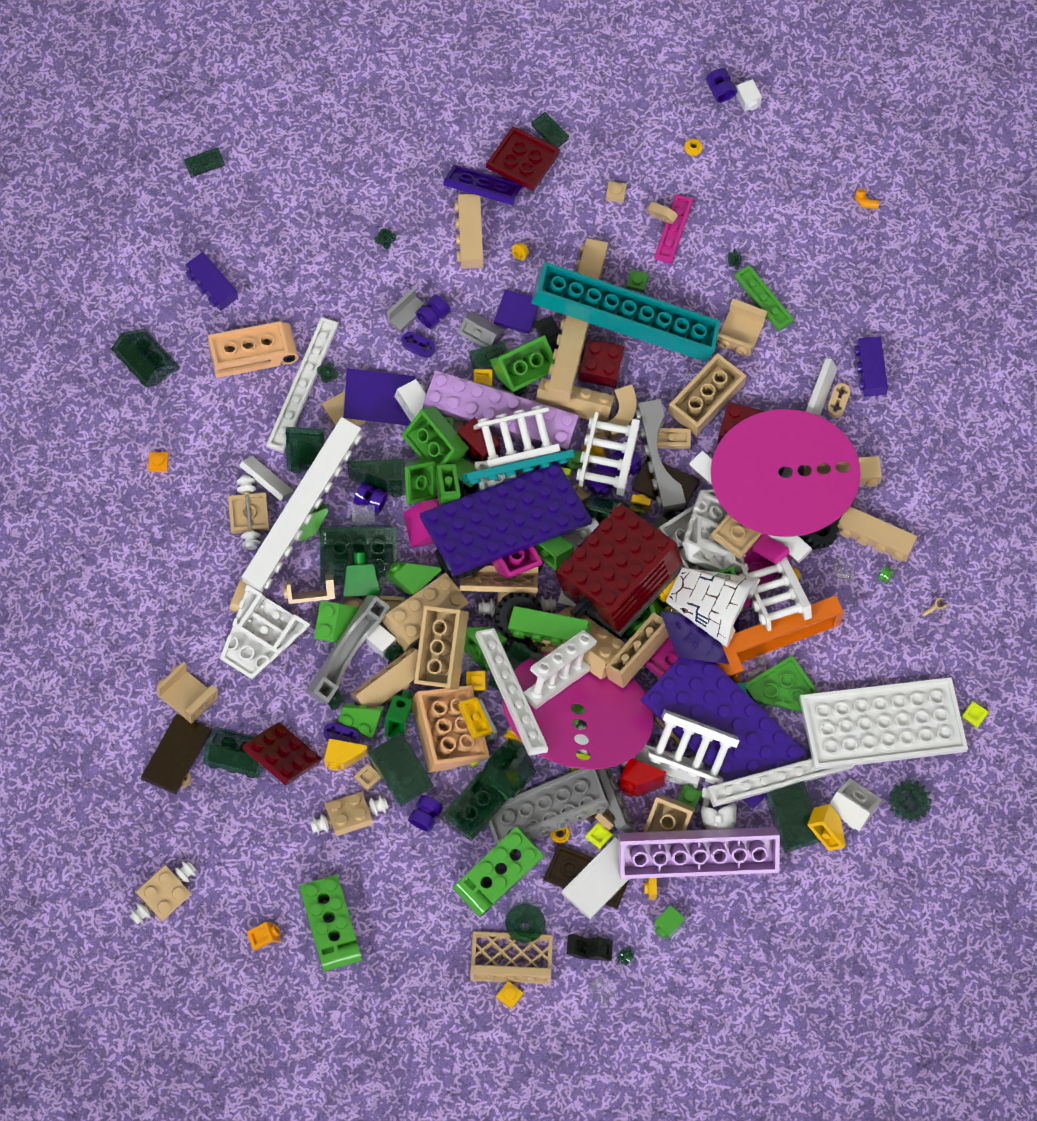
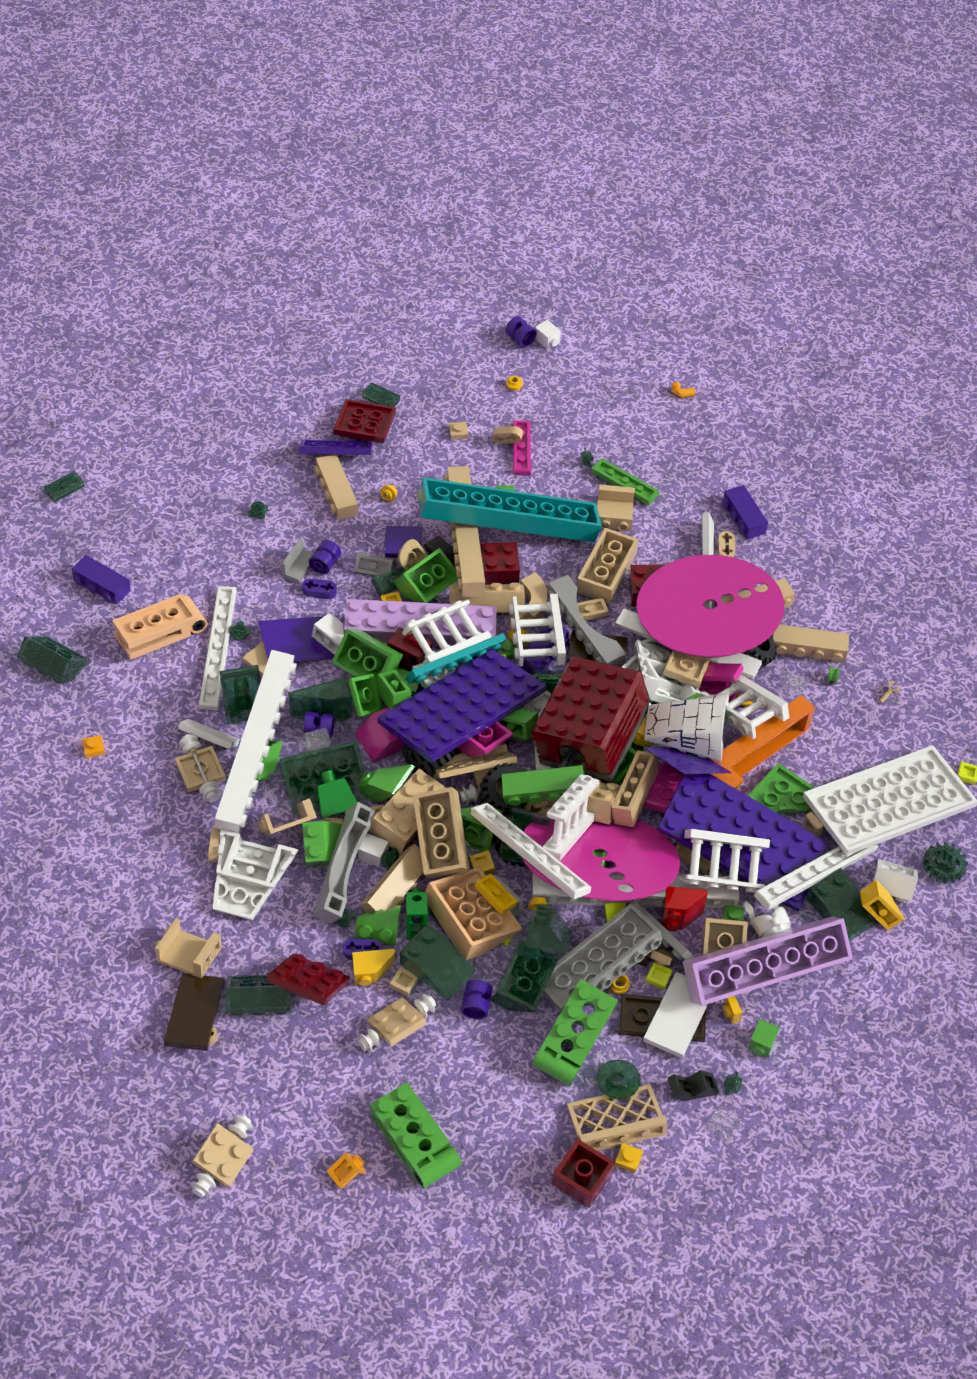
camera: 20 degrees left, 15 degrees down
(462, 999) = (583, 1173): none -> dark red brick
(515, 334) = (411, 554): none -> tan piece
(760, 667) = (751, 781): clear arm -> none
(799, 728) = (813, 824): none -> tan tile

